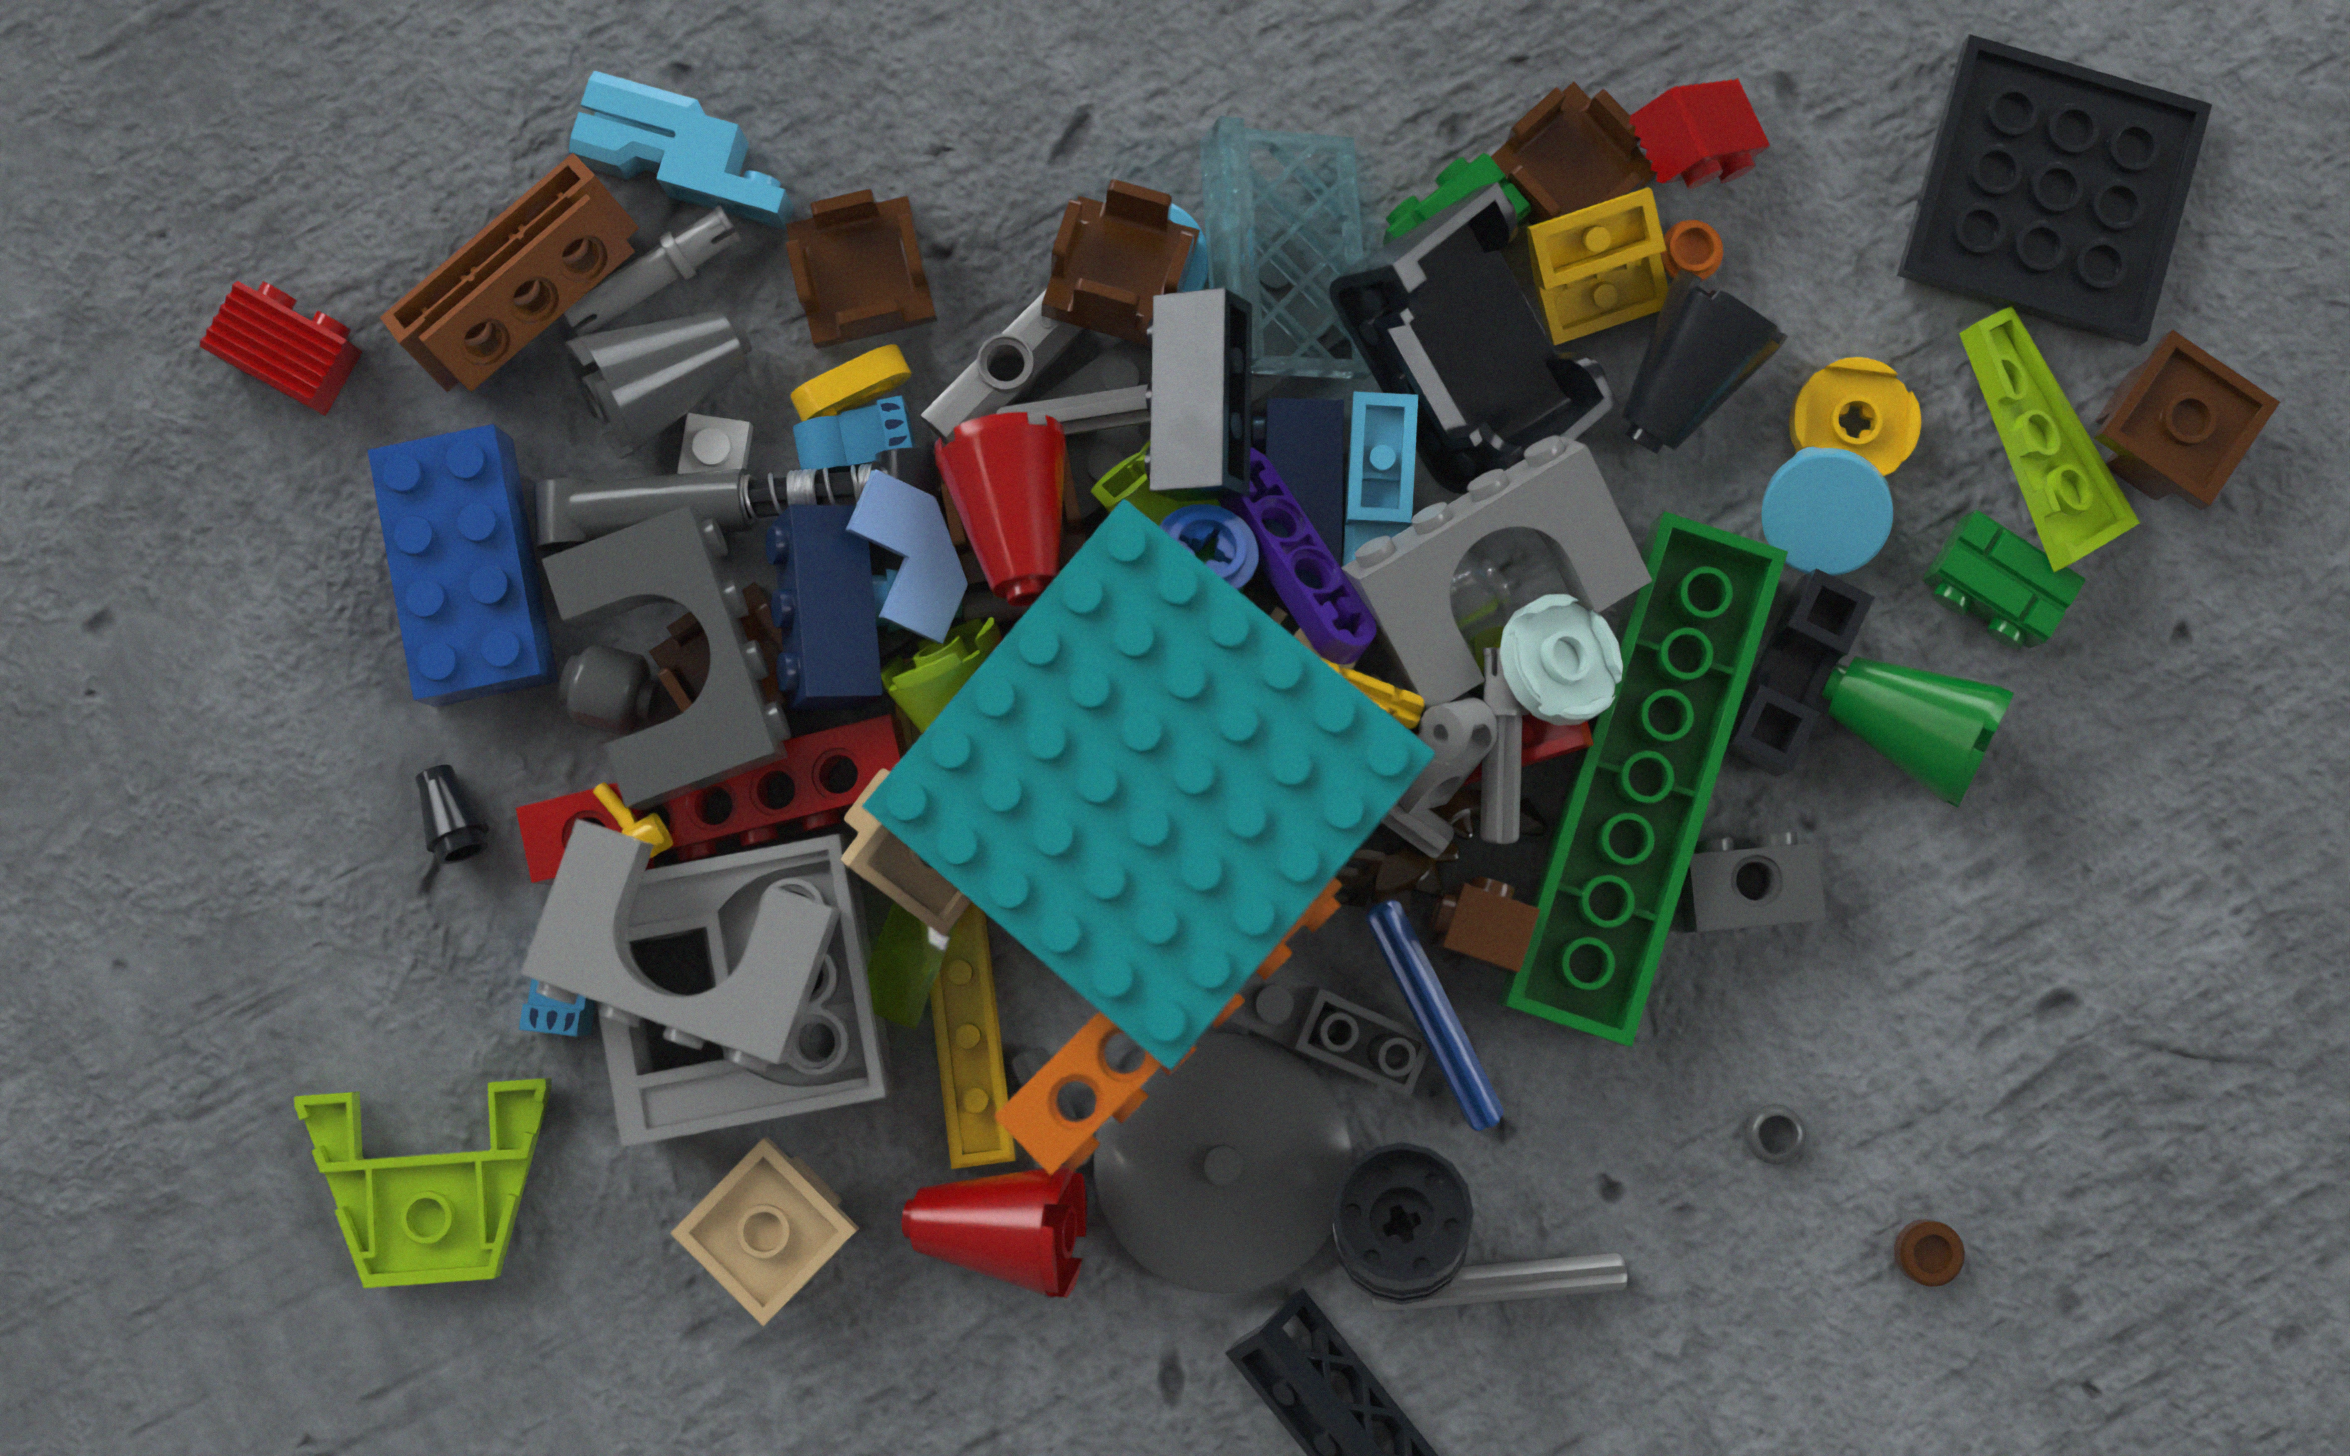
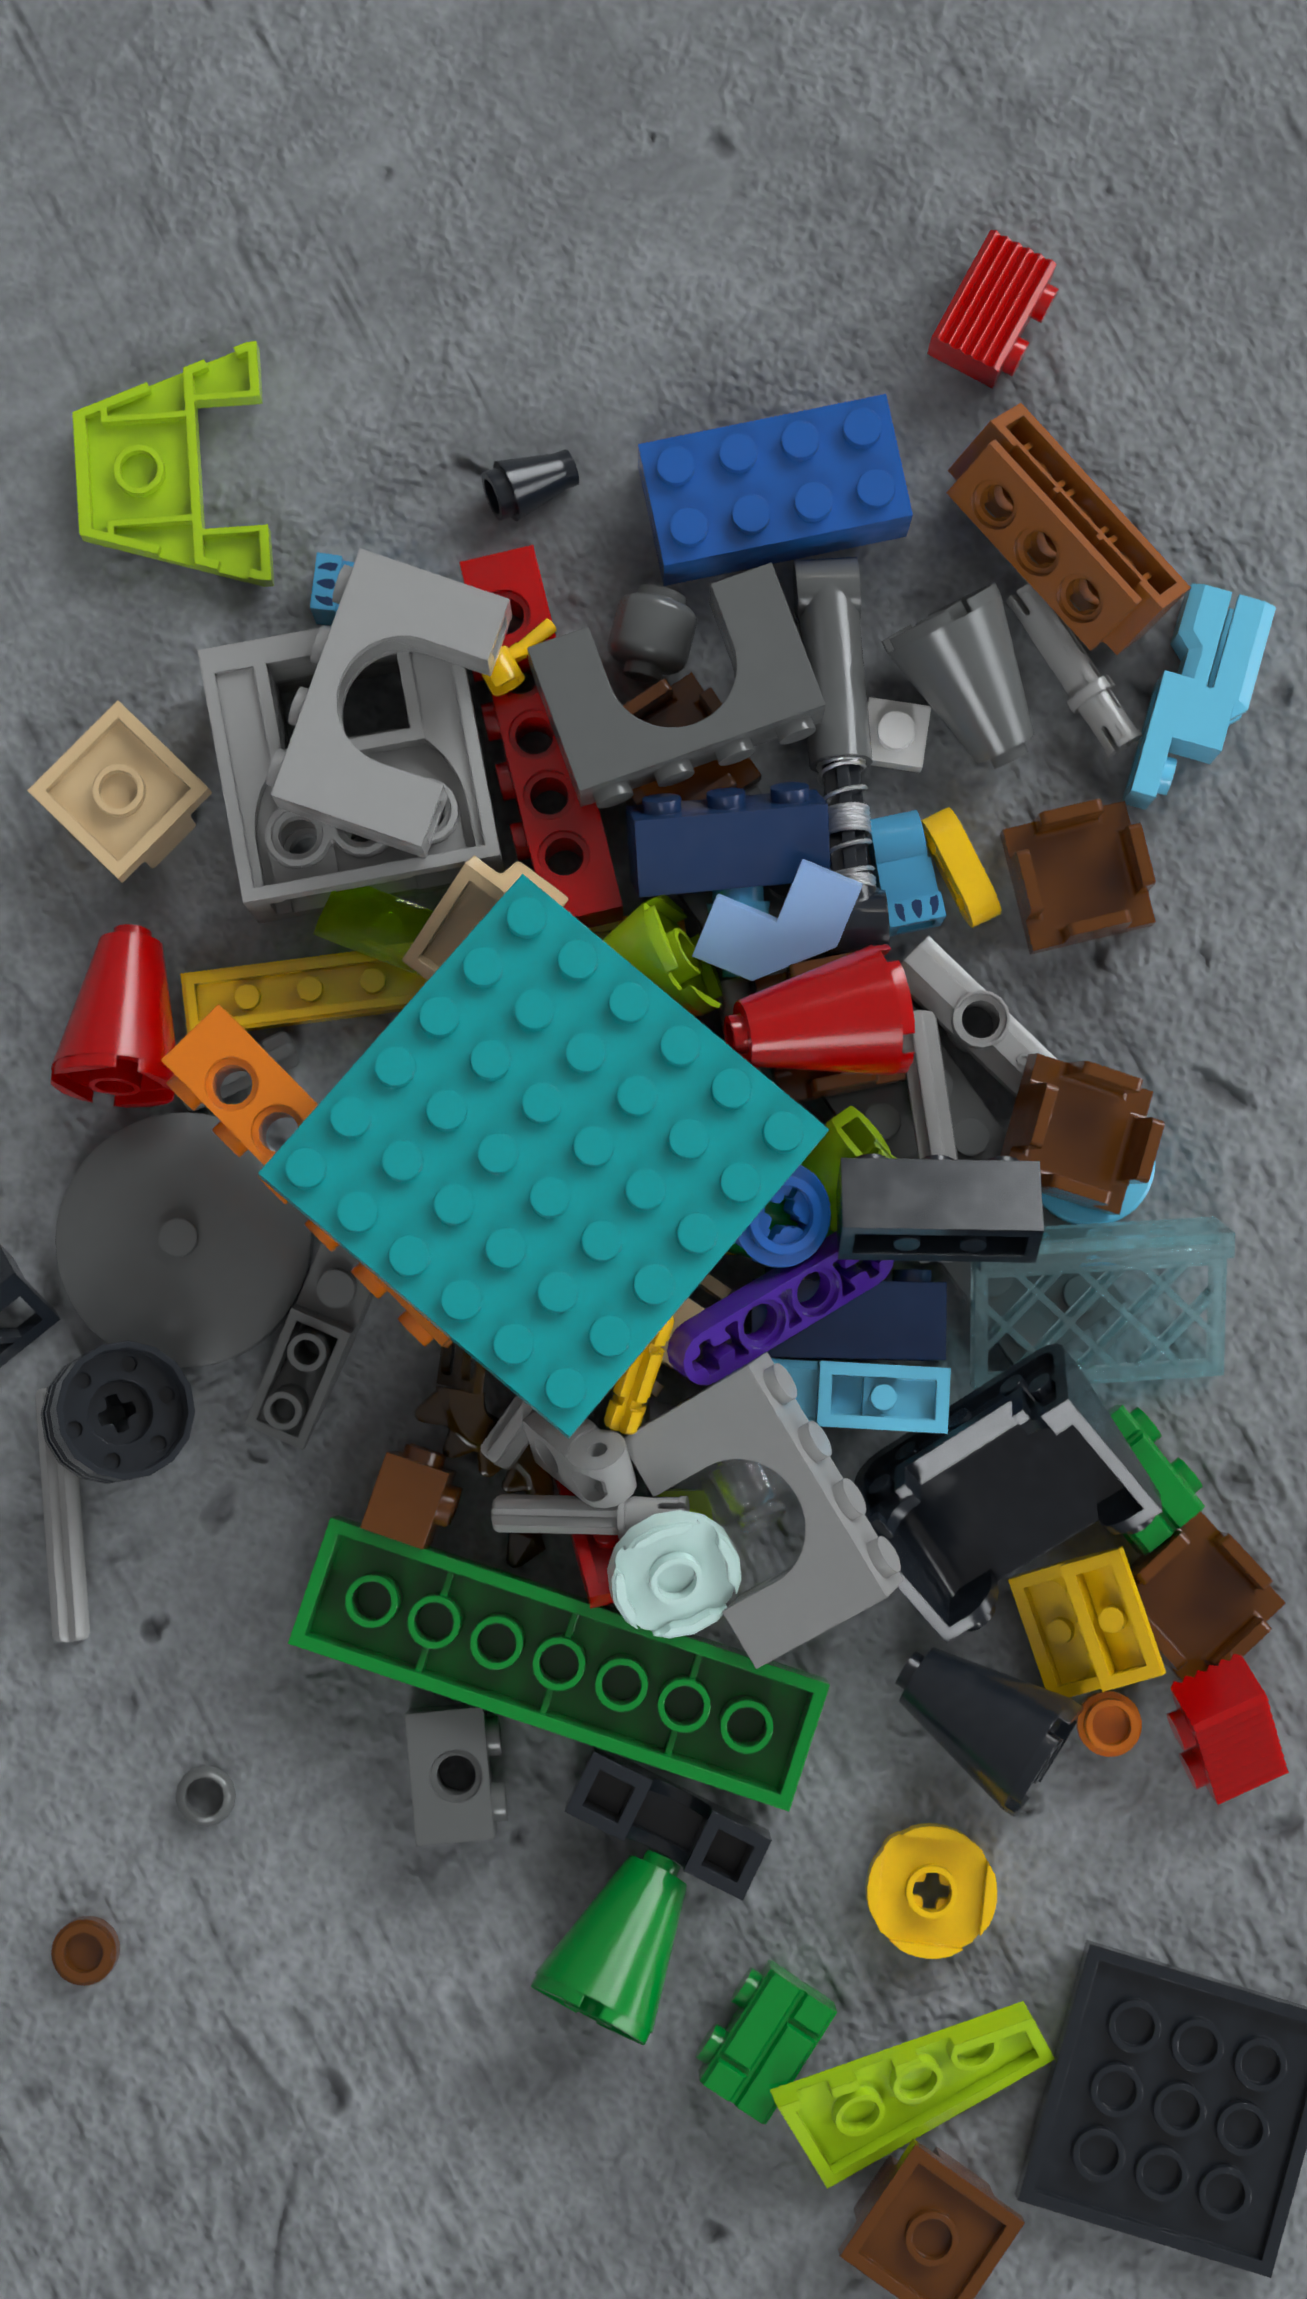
camera: 85 degrees right, 0 degrees up
(1434, 1014) = (325, 1448): blue axle -> none
(1827, 510) = (835, 1857): medium azure tile -> none

